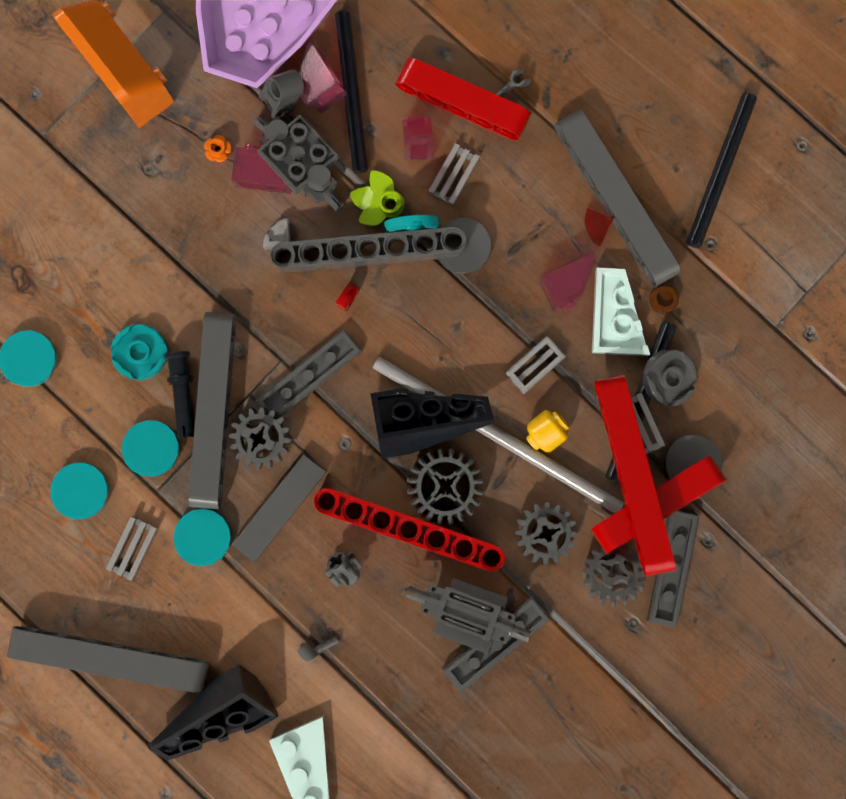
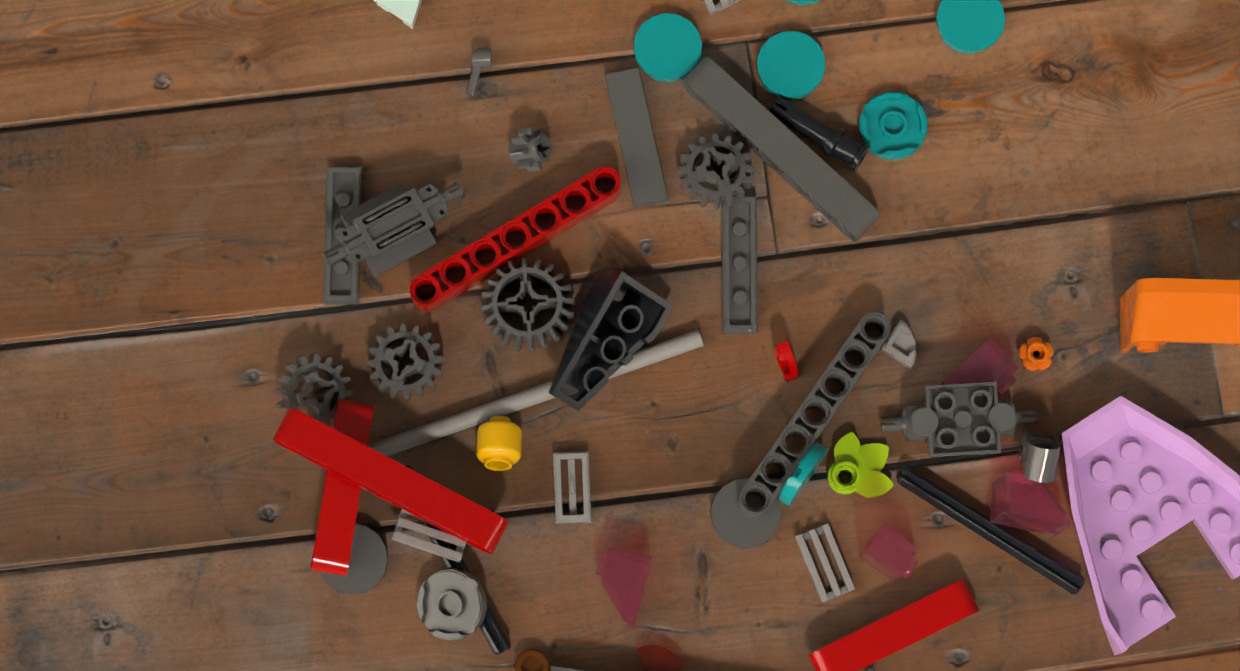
camera: 130 degrees right, 5 degrees down
(615, 317) = (554, 602): light aqua wing -> none
(670, 586) = (271, 459): dark grey tile -> none

